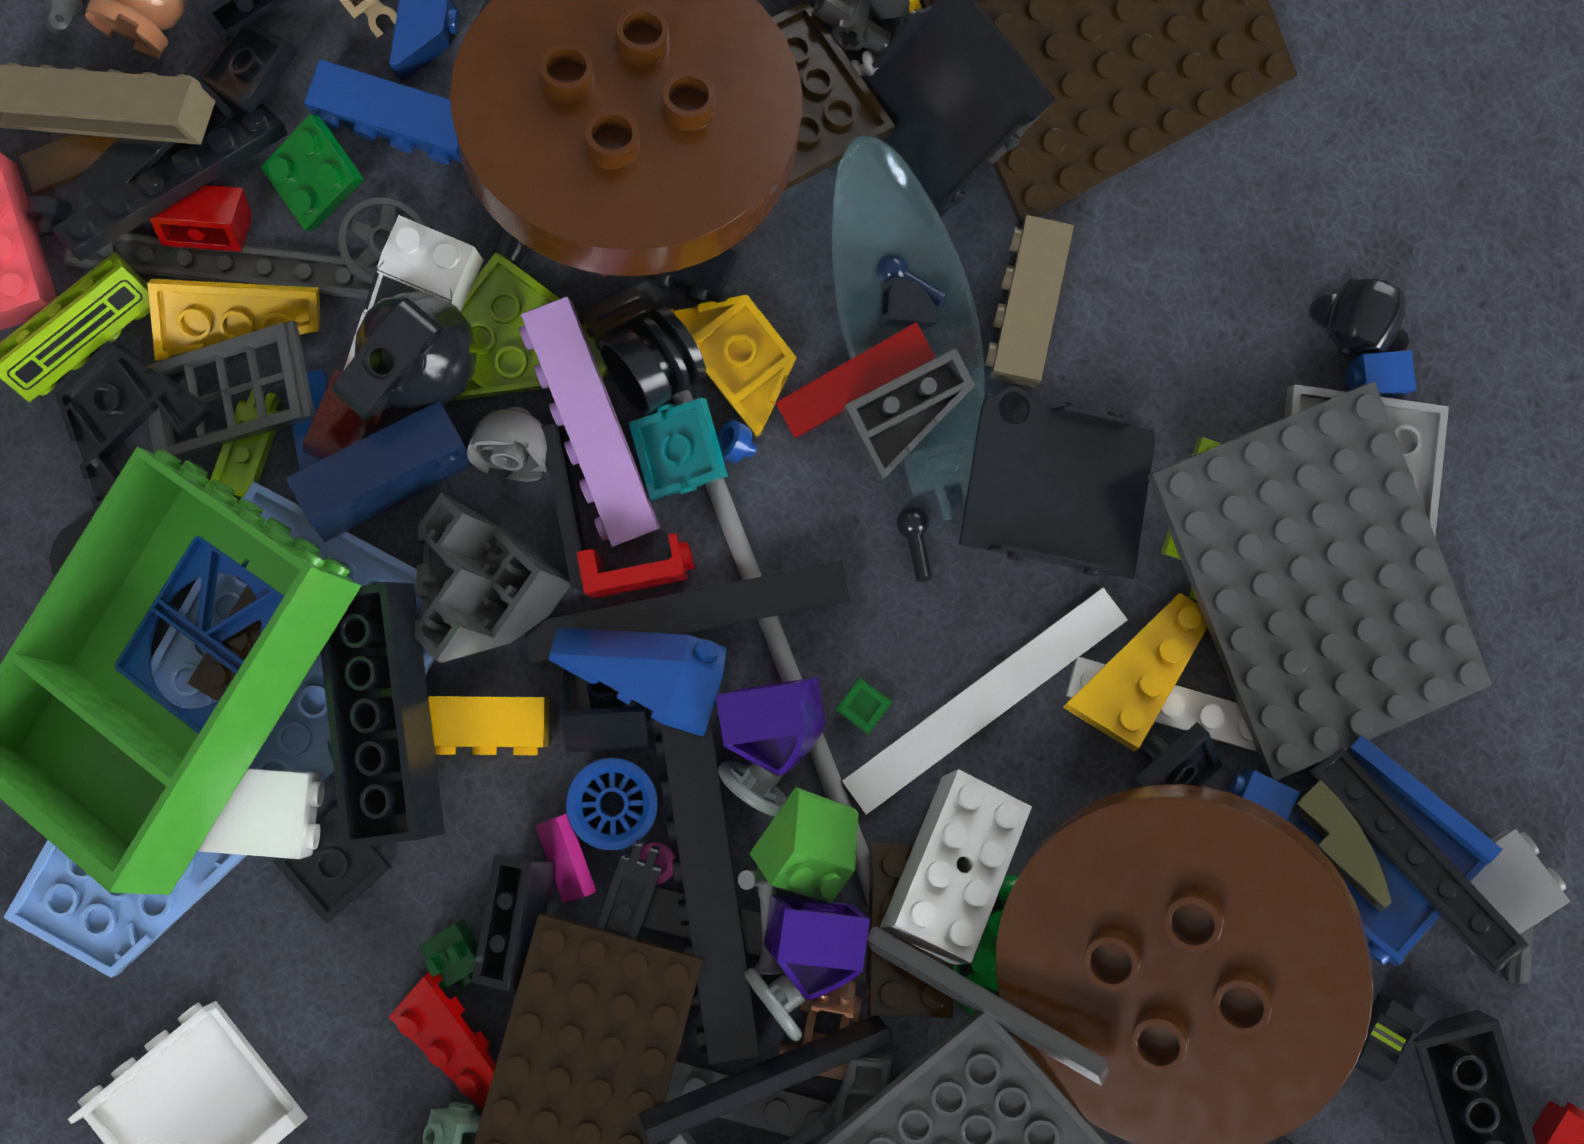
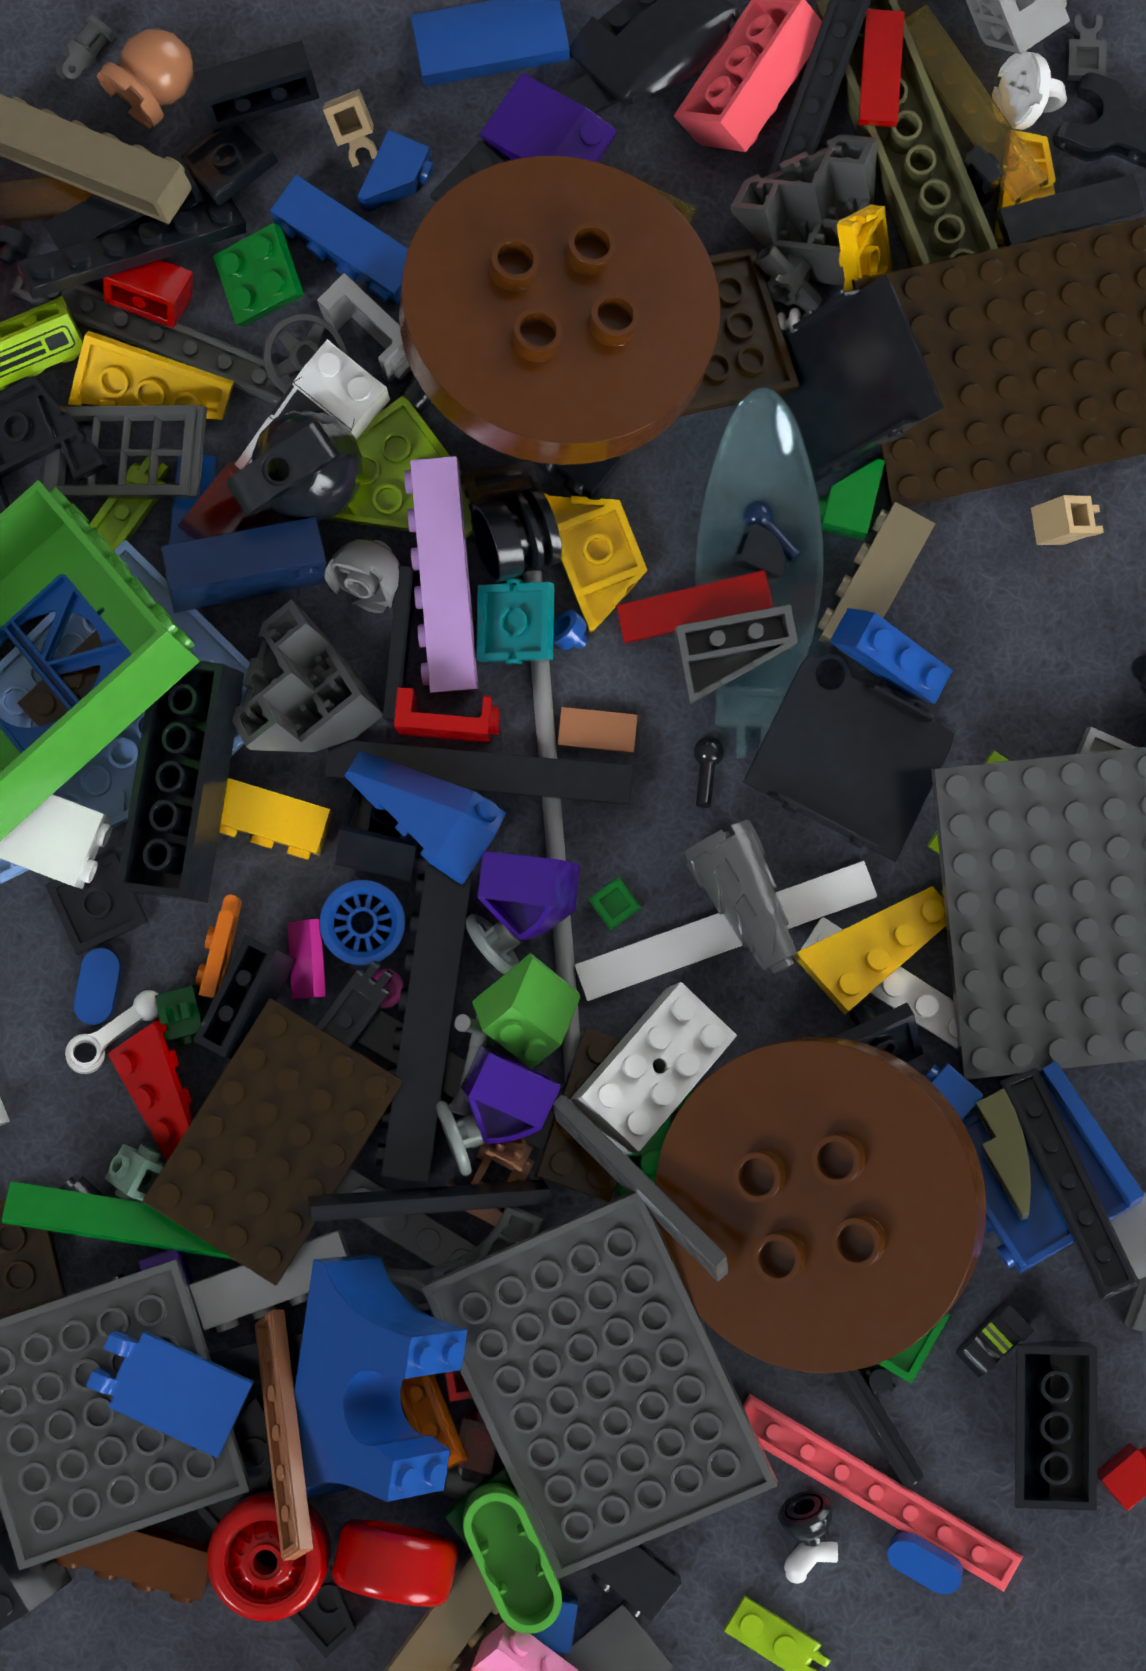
camera: 20 degrees right, 0 degrees up
(358, 950) = (97, 986): none -> blue tile
(409, 172) = (348, 300): none -> light grey panel
(411, 960) = (143, 1008): none -> white piece
(472, 870) = (219, 941): none -> orange hinge
(794, 534) = (597, 730): none -> nougat tile
(982, 228) = (851, 502): none -> green slope
(993, 655) = (744, 891): none -> dark grey cone
(1070, 370) = (891, 655): none -> blue brick
(1201, 184) = (1065, 520): none -> tan brick

